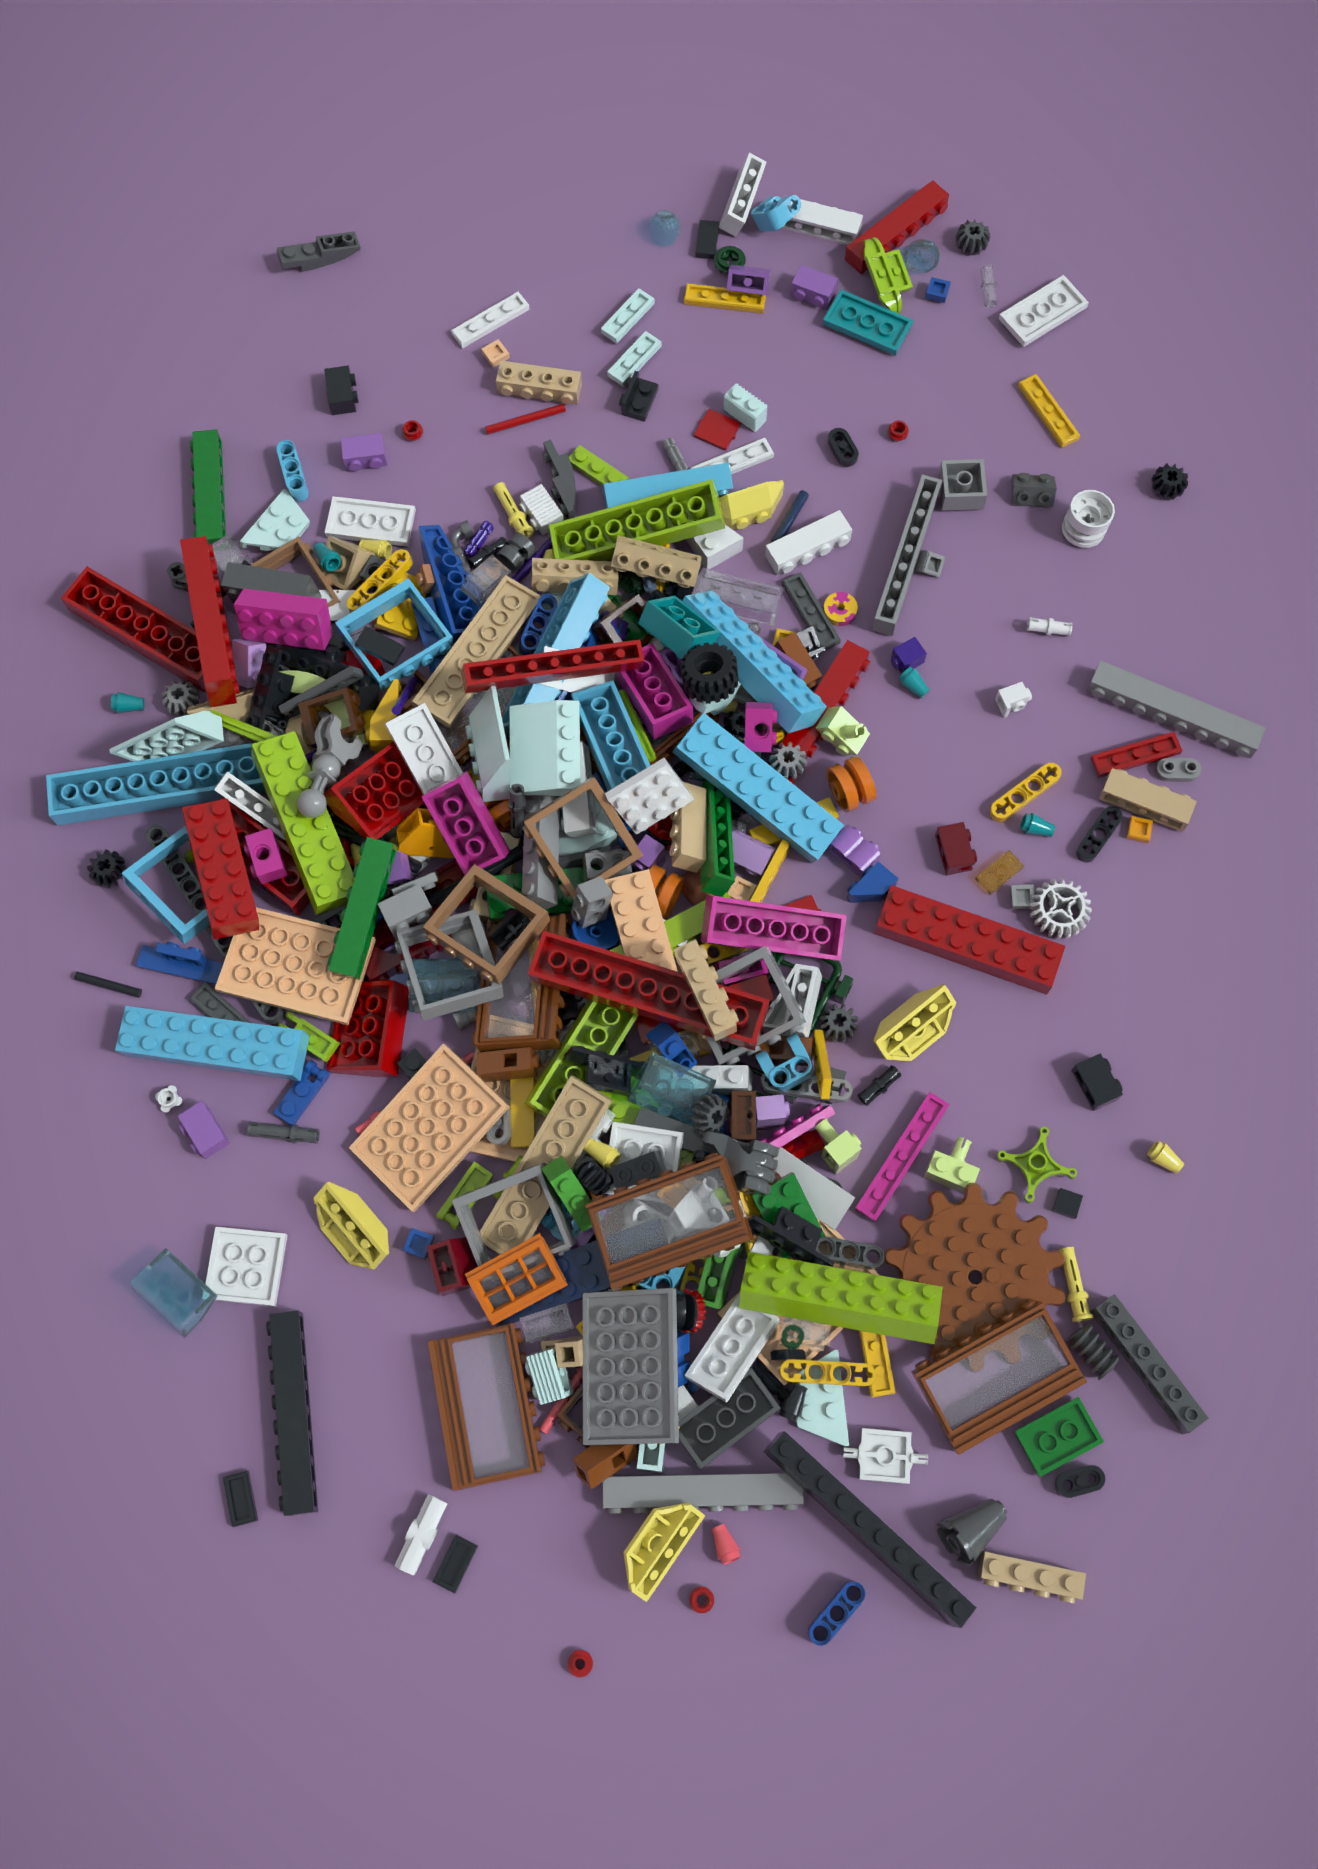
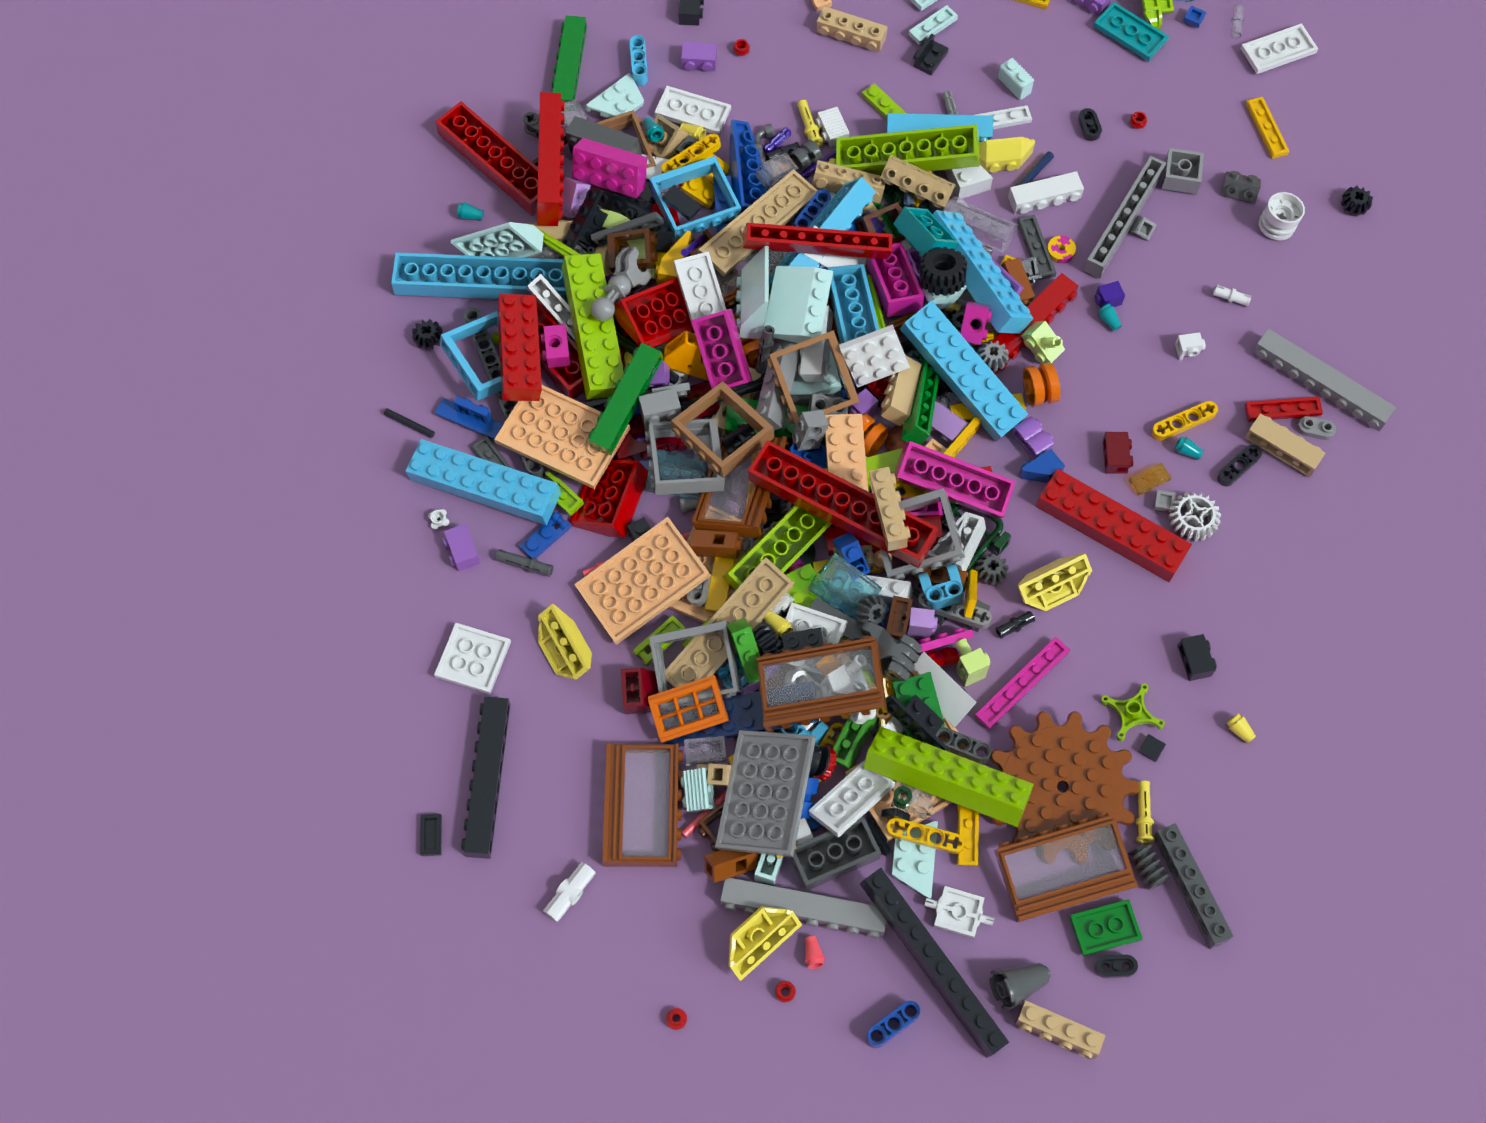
camera: 10 degrees right, 5 degrees down
(174, 1292) = (412, 665): clear light blue slope -> none
(180, 697) = (512, 213): light grey gear -> none
(417, 1243) = (613, 669): blue plate -> none
(425, 579) = (728, 161): nougat plate -> none
(455, 1563) = (592, 921): black tile -> none
(525, 419) = (834, 55): red bar -> none
(563, 479) = (855, 106): dark grey slope -> none
(605, 1070) = (794, 561): black bracket -> none
(717, 429) = (989, 92): red piece -> none
(793, 1403) = (892, 853): black cone -> none
(952, 1169) = (1061, 700): yellowish green brick -> none
(1139, 829) = (1274, 468): light orange tile -> none

